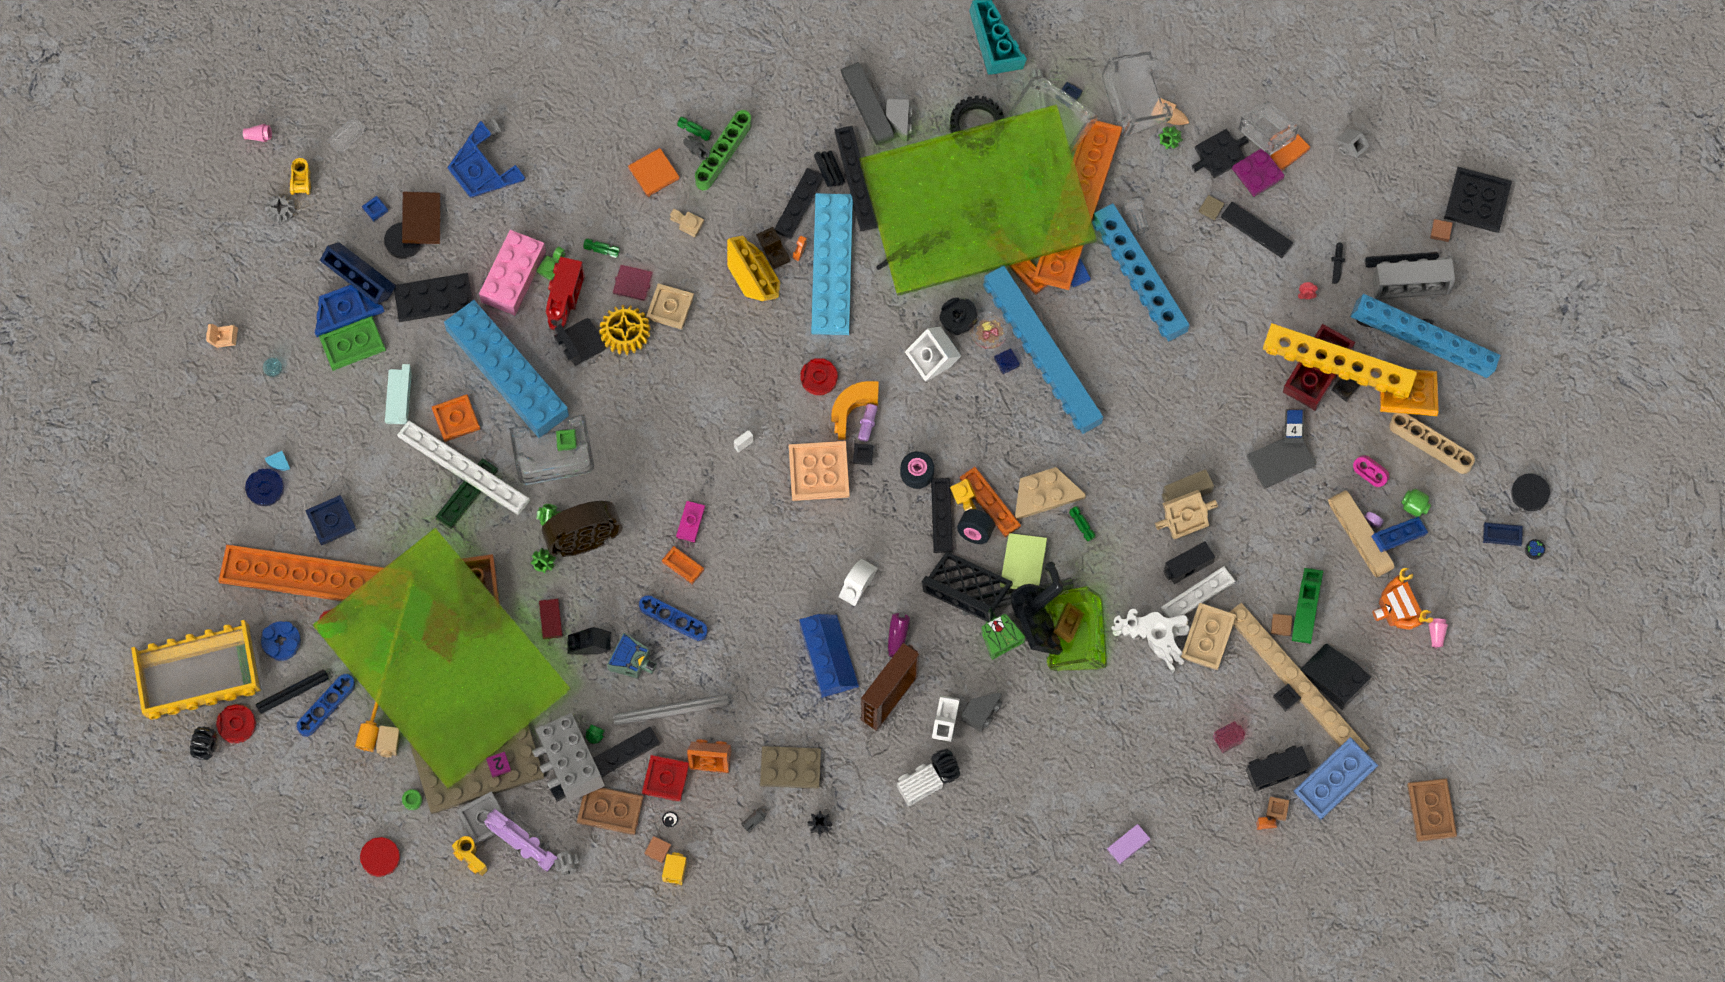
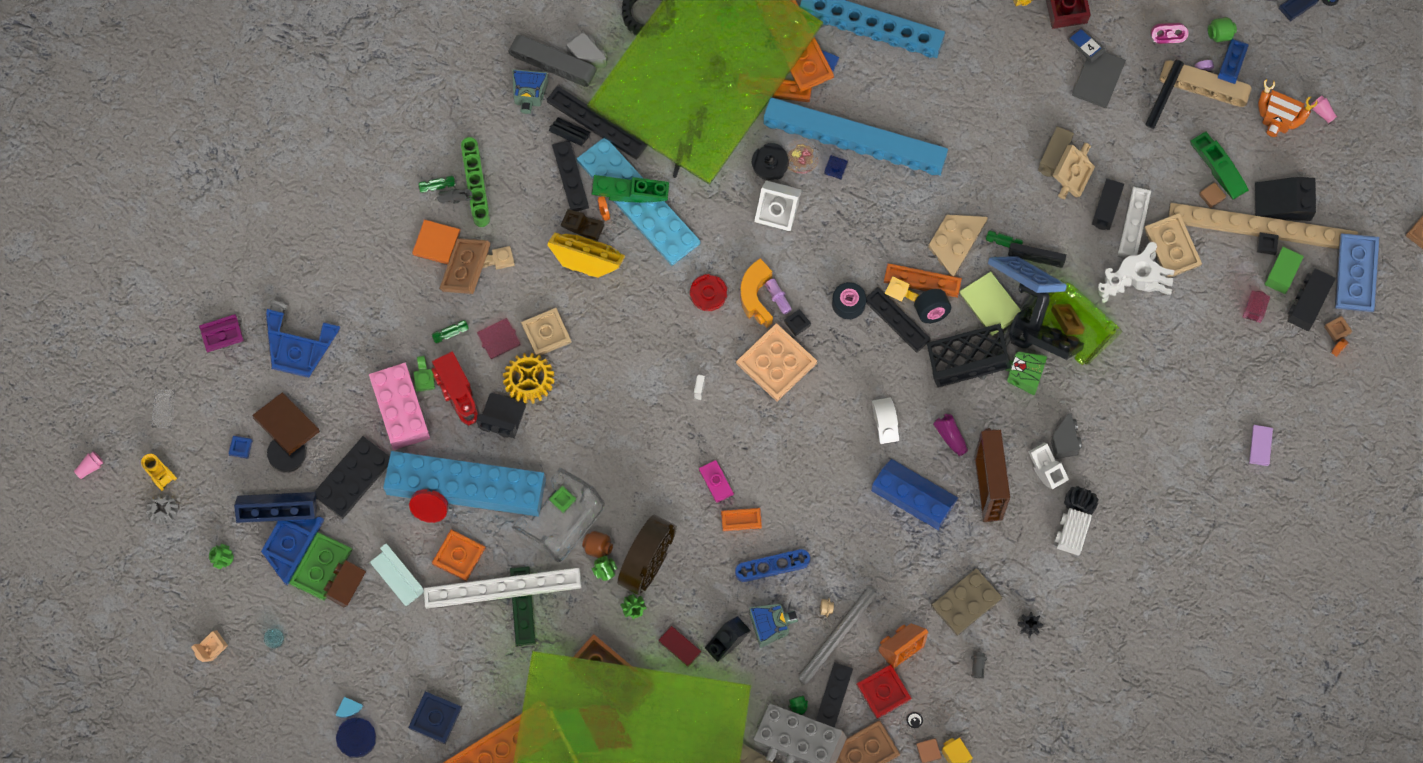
camera: 40 degrees left, 0 degrees up
(288, 276) = (221, 556): none -> bright green gear
(355, 368) = (344, 583): none -> reddish brown brick
(436, 113) = (221, 333): none -> magenta plate
(464, 362) = (428, 506): none -> red tile
(559, 493) = (597, 544): none -> dark orange head
(656, 207) = (465, 266): none -> medium nougat tile
(682, 681) = (826, 607): none -> tan plate
(828, 249) = (630, 190): none -> green slope
(829, 111) = (529, 88): none -> torso
(1066, 561) = (1027, 274): none -> medium blue tile
(1095, 555) = (1037, 255): none -> black tile
(1278, 727) = (1284, 270): none -> bright green panel
(1317, 514) = (1164, 94): none -> black axle

